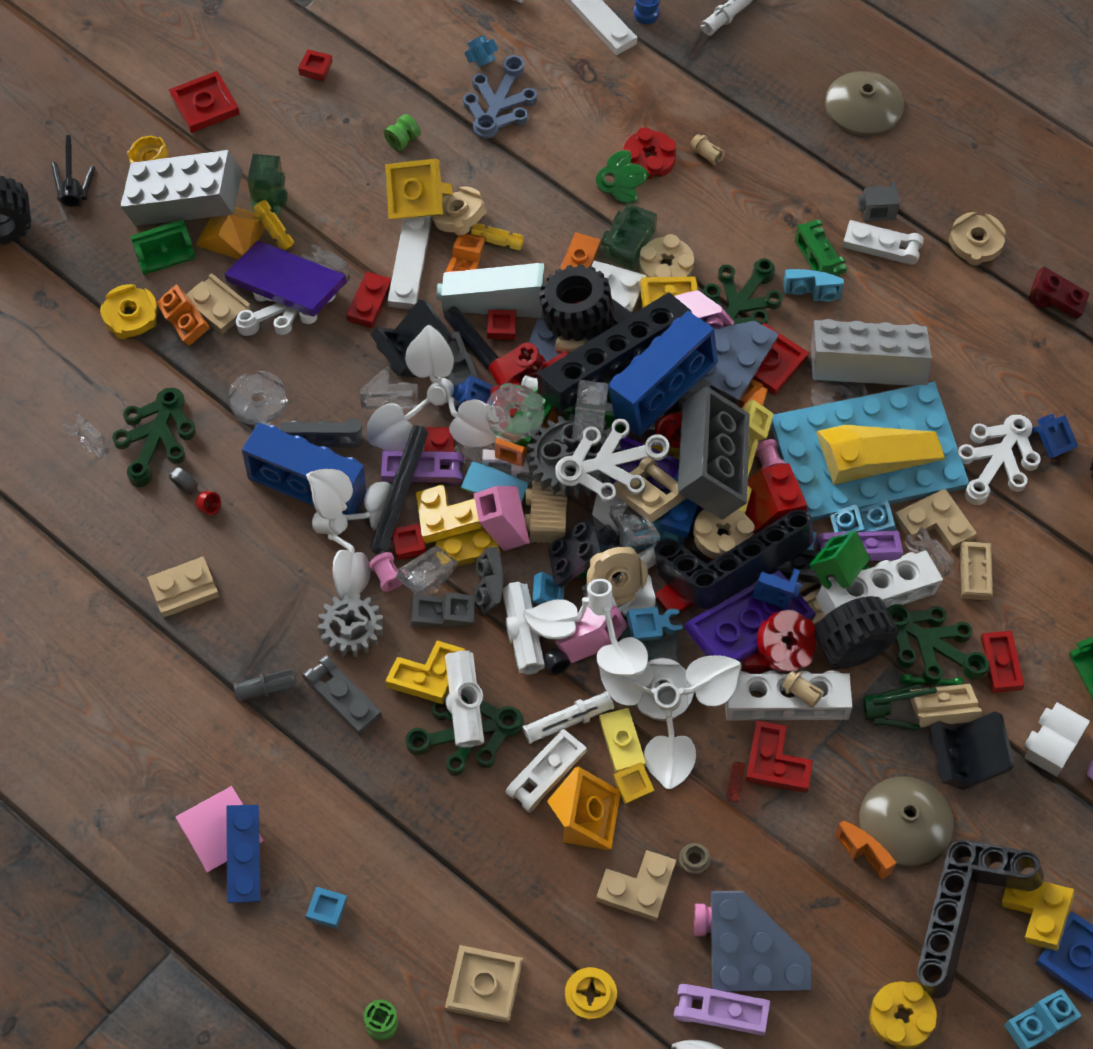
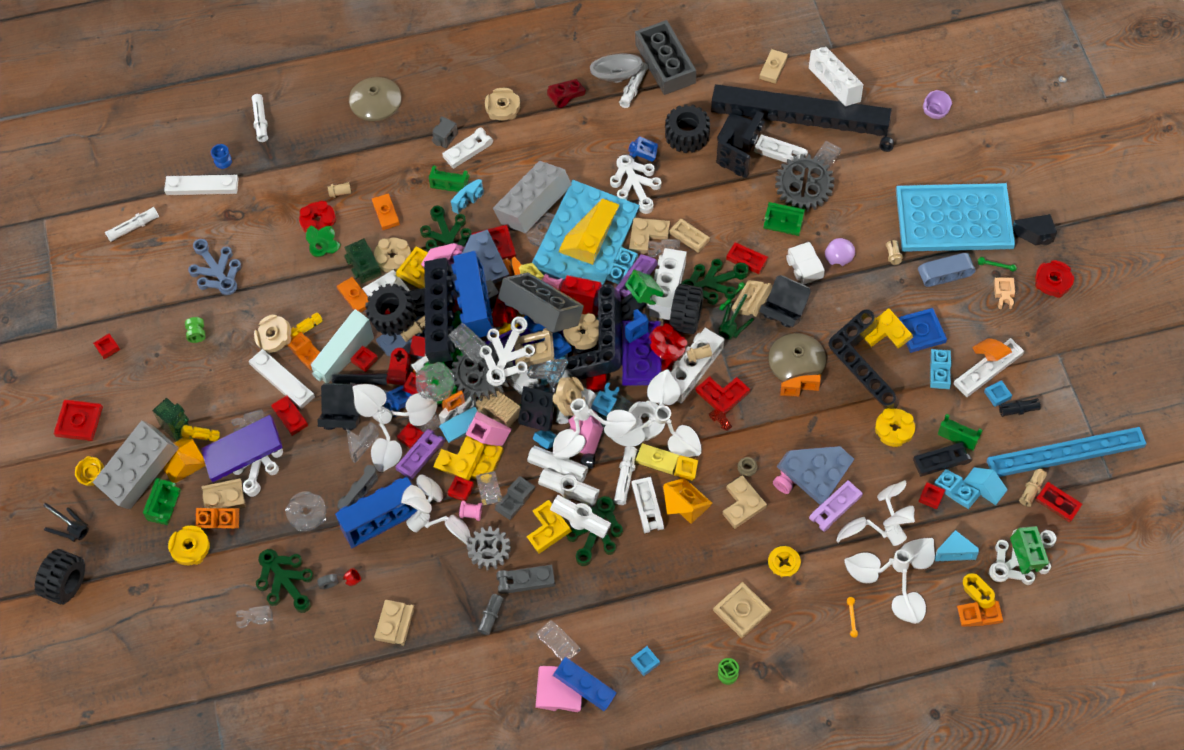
camera: 50 degrees left, 0 degrees up
(282, 787) = (558, 641): none -> clear slope
(399, 490) = (428, 472): black axle -> none
(415, 189) = (245, 344): yellow bracket -> none
(481, 50) = (176, 255): dark azure gear -> none
(489, 590) = (520, 462): dark grey slope -> none
(502, 676) = (557, 482): none -> white piece
(718, 216) = (385, 211): none -> orange plate

